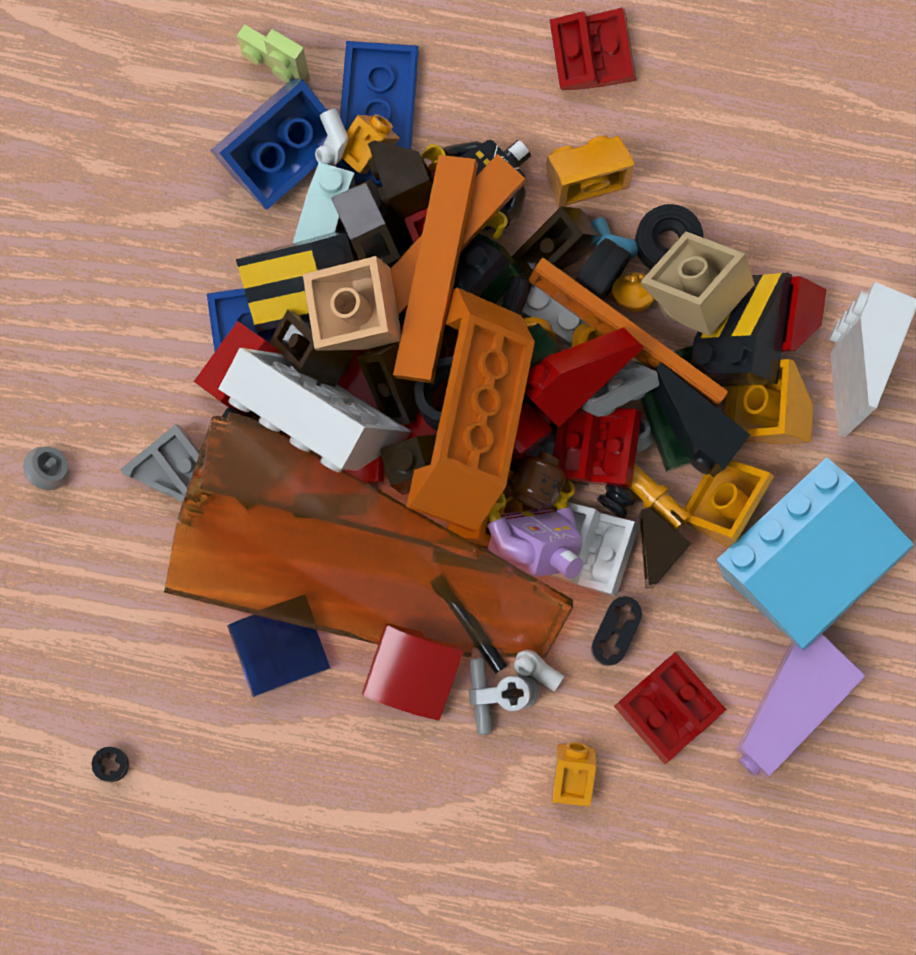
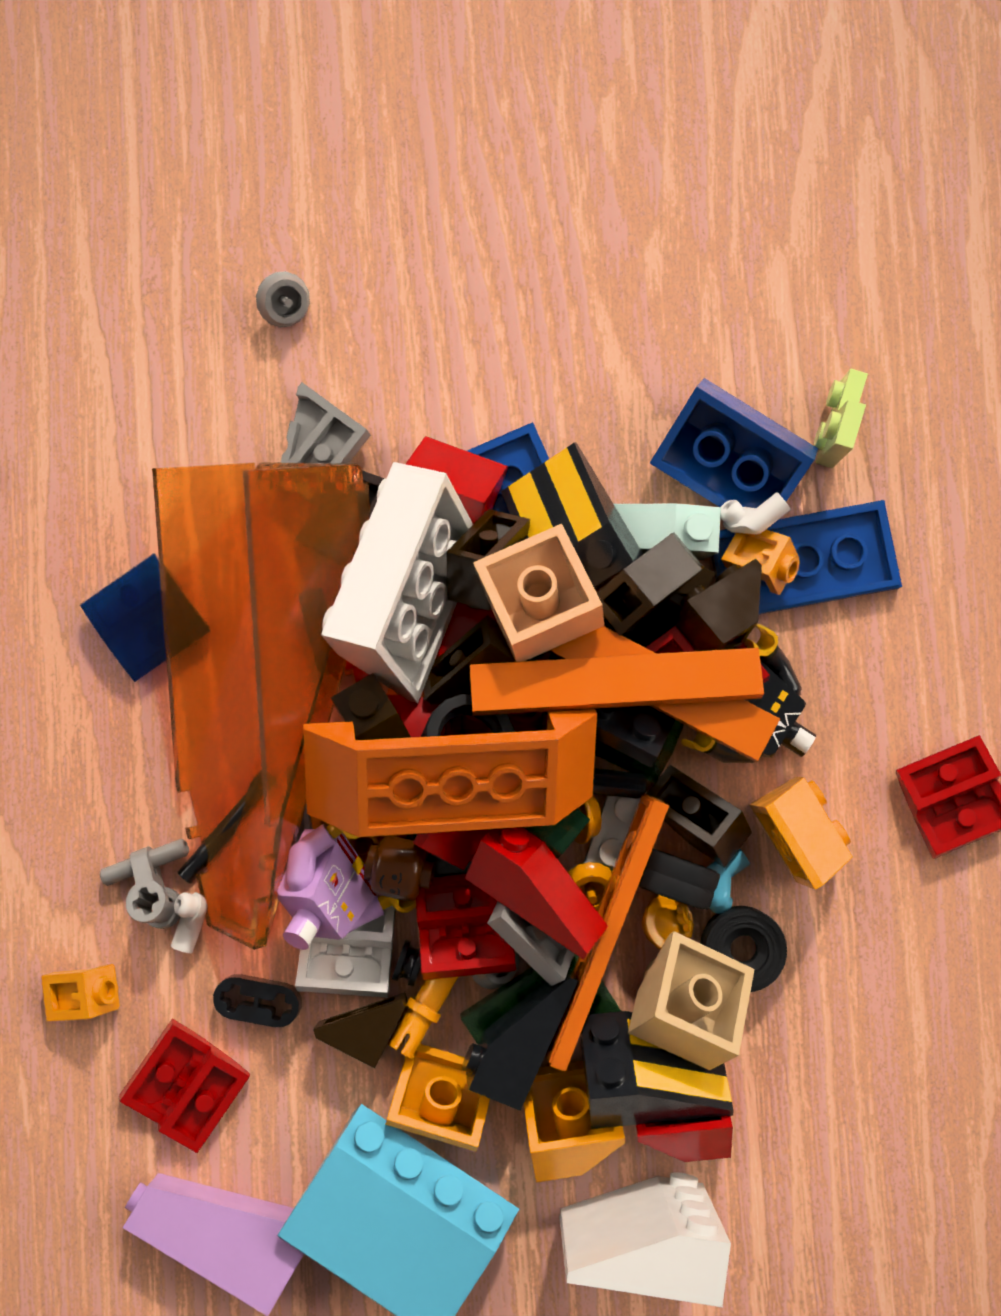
camera: 80 degrees right, 5 degrees up
(412, 672) = (148, 777): red slope -> none

